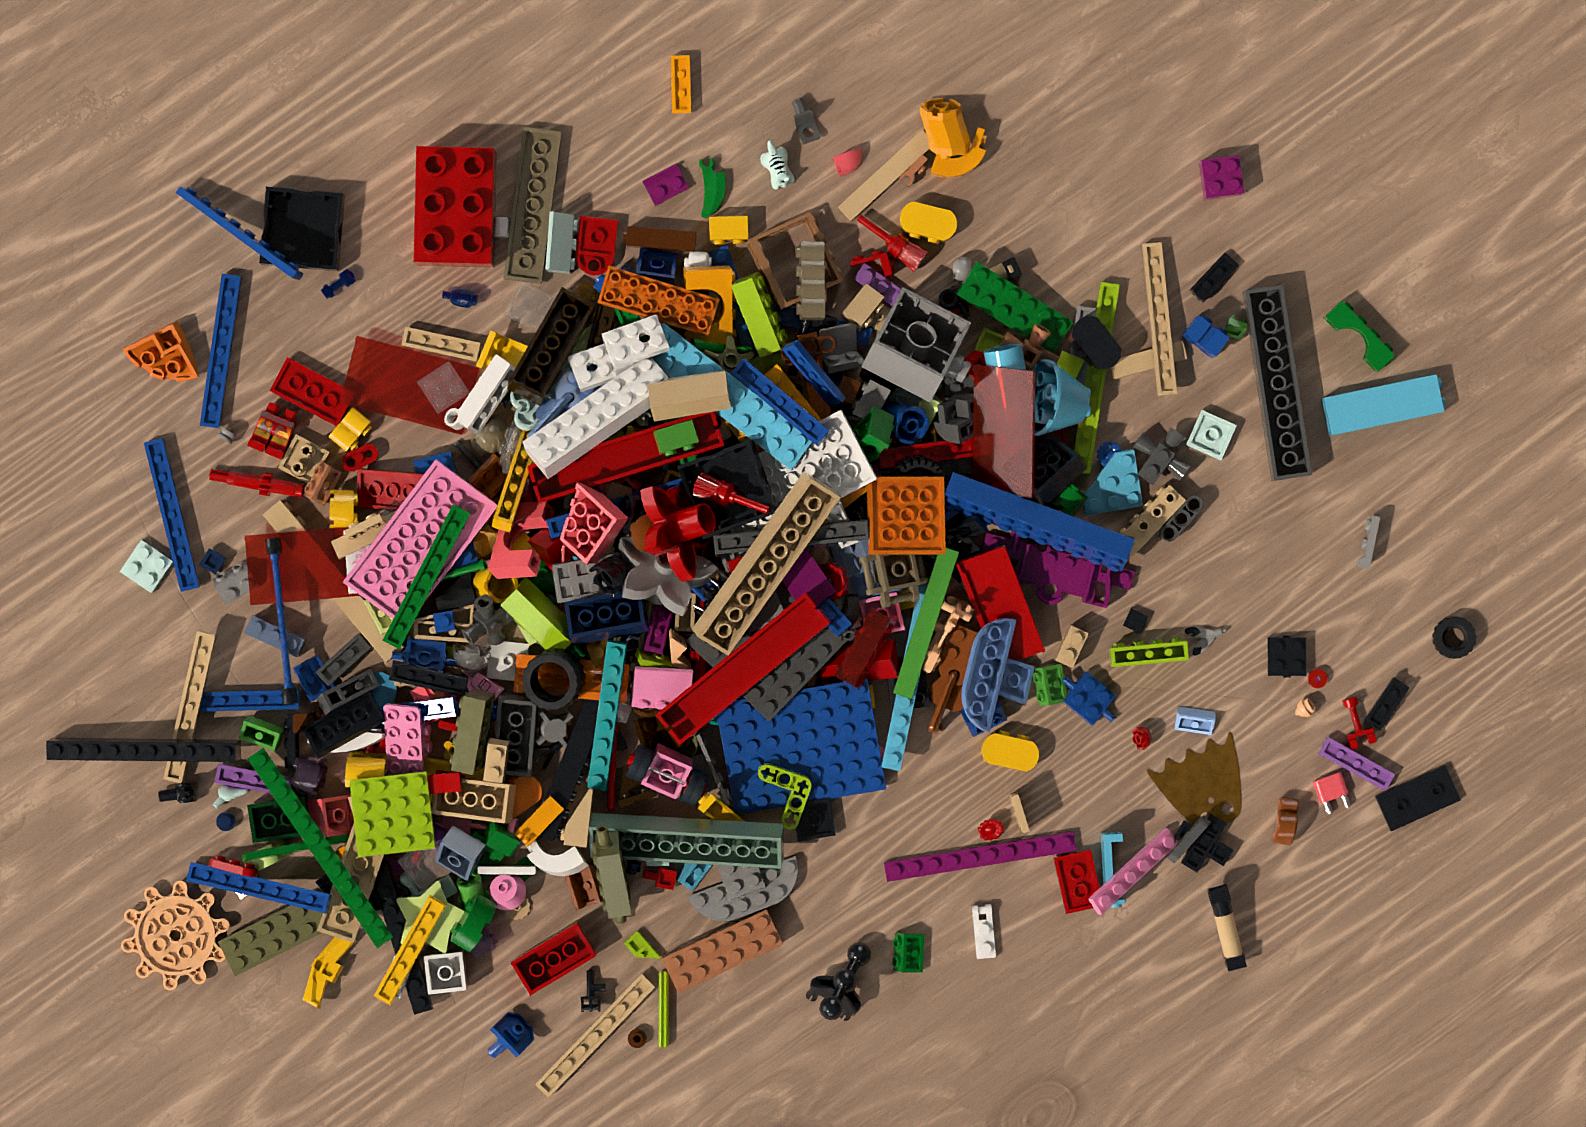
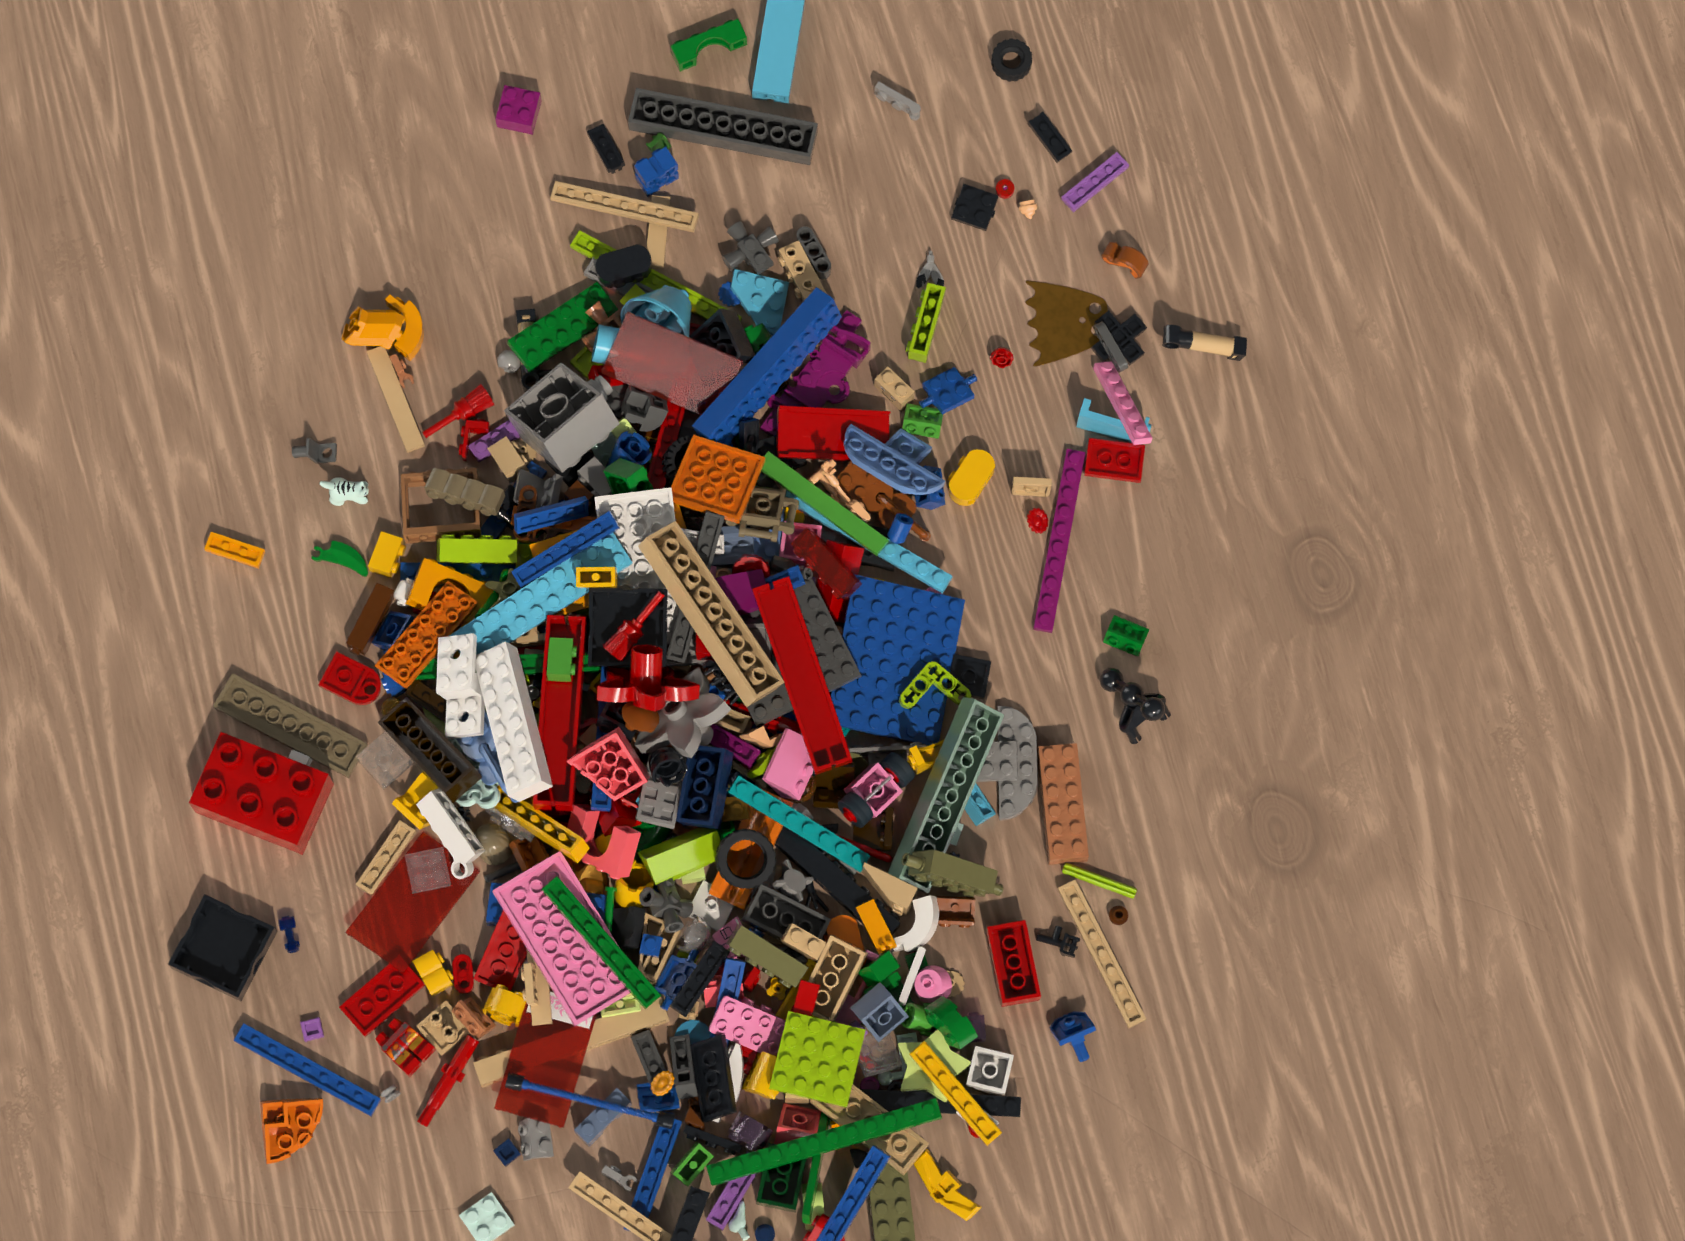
camera: 70 degrees left, 15 degrees down
(171, 515) = (446, 1175): blue plate -> none
(228, 665) = (614, 1174): none -> light grey plate
(245, 236) = (194, 1008): blue plate -> none
(259, 340) = (312, 1029): none -> medium lavender tile
(322, 680) = (662, 1083): none -> light orange piece
(461, 297) = (349, 823): clear blue plant -> none
(561, 243) = (336, 711): light aqua slope -> none
(641, 947) = (1032, 880): lime tile -> none
(663, 877) = (974, 835): red plate -> none
(665, 184) = (321, 598): magenta plate -> none
(689, 395) = (526, 627): tan slope -> none
(760, 443) = (596, 577): none -> yellow brick
(848, 161) = (368, 428): coral brick -> none
(927, 705) = (900, 528): none -> blue brick
(928, 222) = (453, 376): yellow brick -> none
(983, 932) = (1131, 561): white plate -> none
(1135, 620) = (892, 326): black tile -> none
(1195, 720) = (1004, 307): light blue slope -> none
(1211, 435) = (747, 201): light aqua plate -> none
(1331, 788) = (1109, 212): coral piece -> none
(1351, 703) = (1074, 161): red bar -> none
(1417, 798) = (1146, 142): black plate -> none

